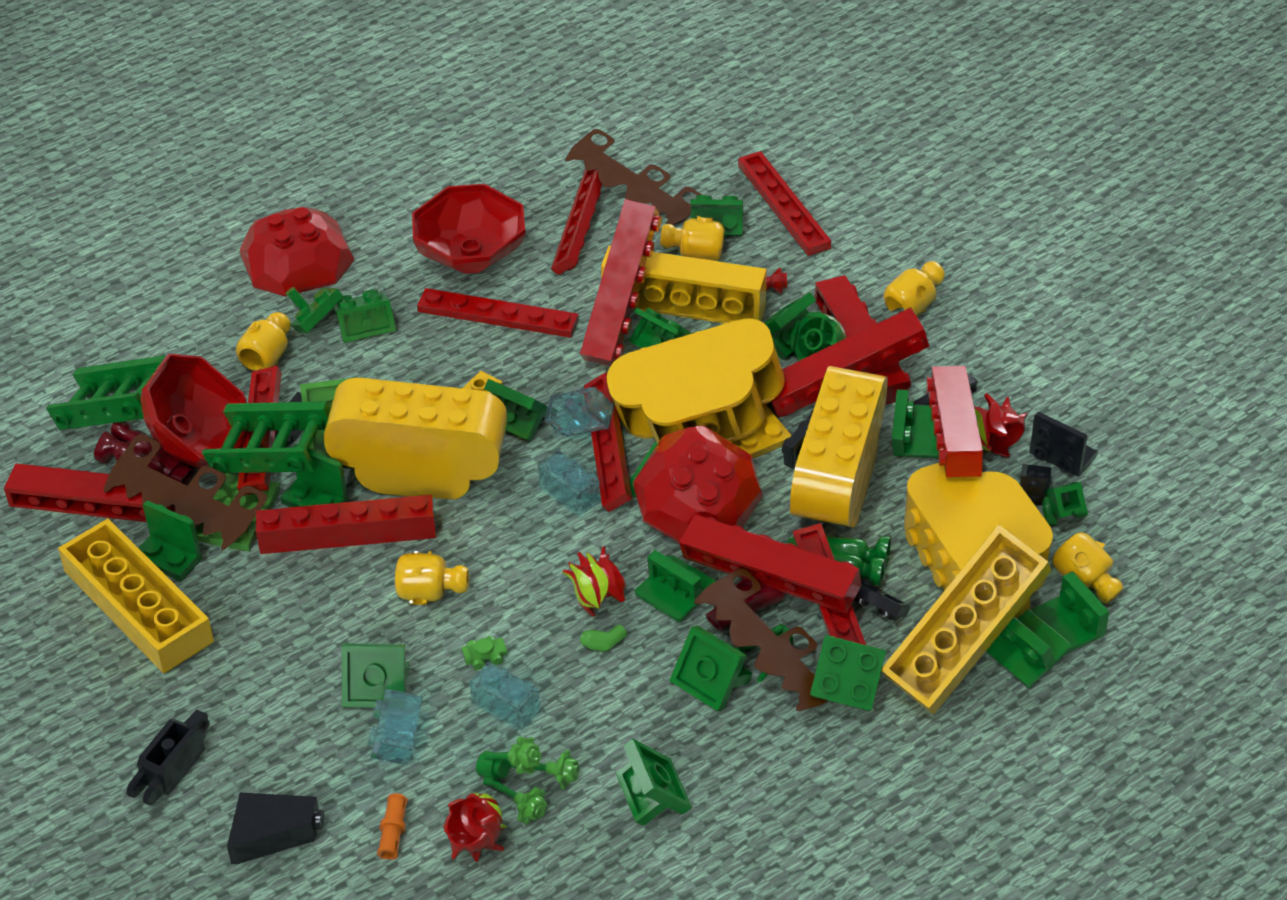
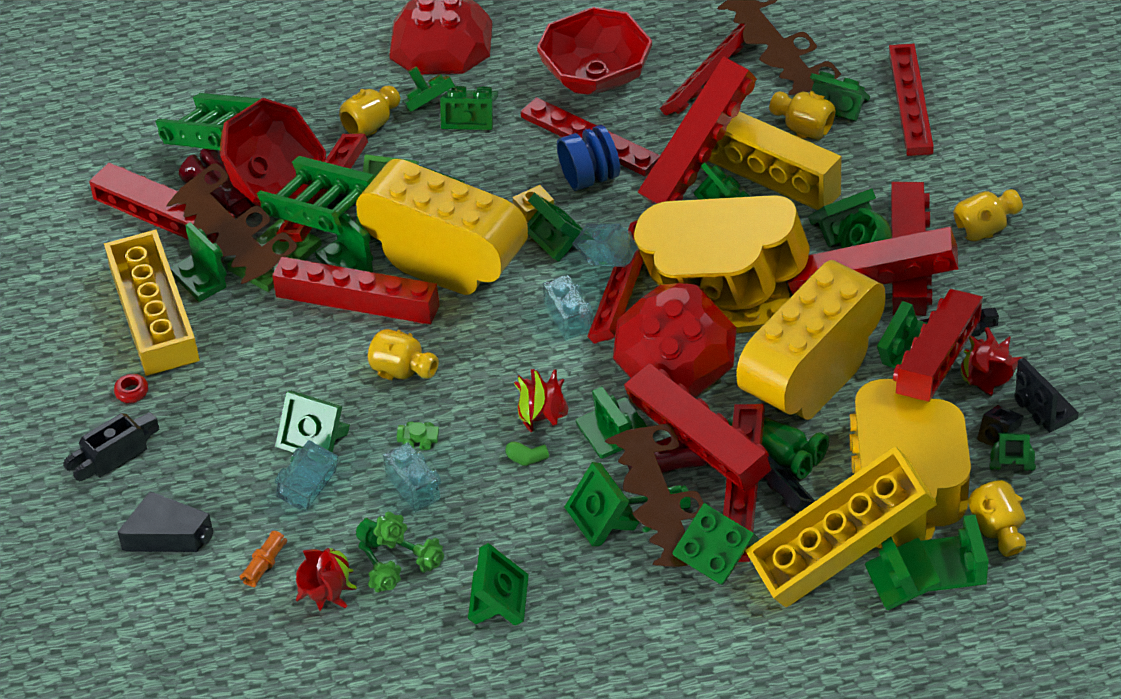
camera: 25 degrees right, 0 degrees up
(158, 699) = (134, 395): none -> red piece
(514, 332) = (588, 157): none -> blue wheel
(777, 281) = (860, 171): red plate -> none

